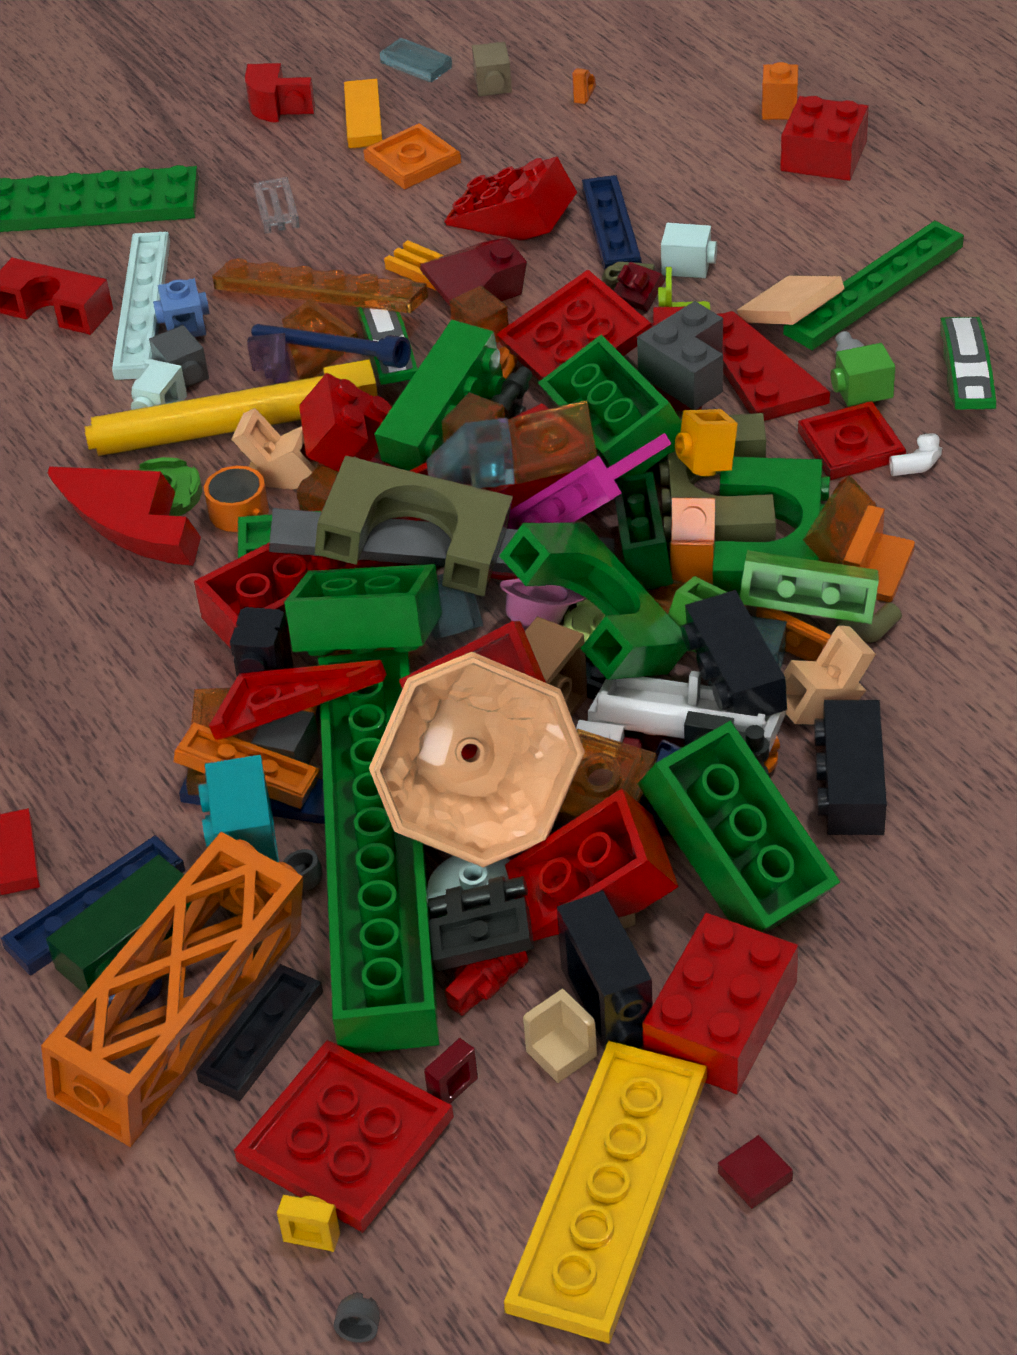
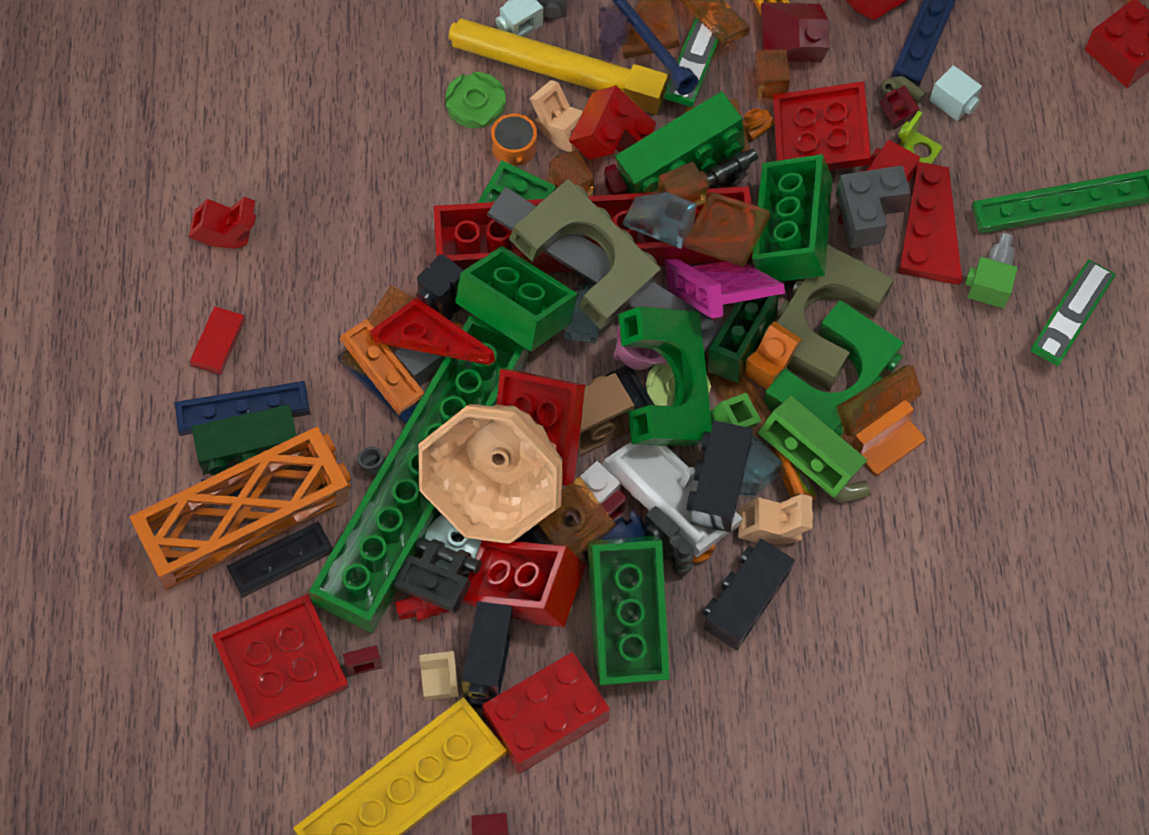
camera: 25 degrees right, 20 degrees up
(130, 511) = (436, 113): red slope -> none
(238, 804) = (351, 410): teal brick -> none
(308, 1222) = (224, 706): yellow plate -> none
(359, 1329) = (213, 784): dark grey hinge -> none
(706, 441) = (828, 288): light orange brick -> none
(791, 299) = (993, 183): light nougat tile -> none
(850, 440) = (948, 328): red tile -> none
(920, 460) = (982, 374): white arm -> none

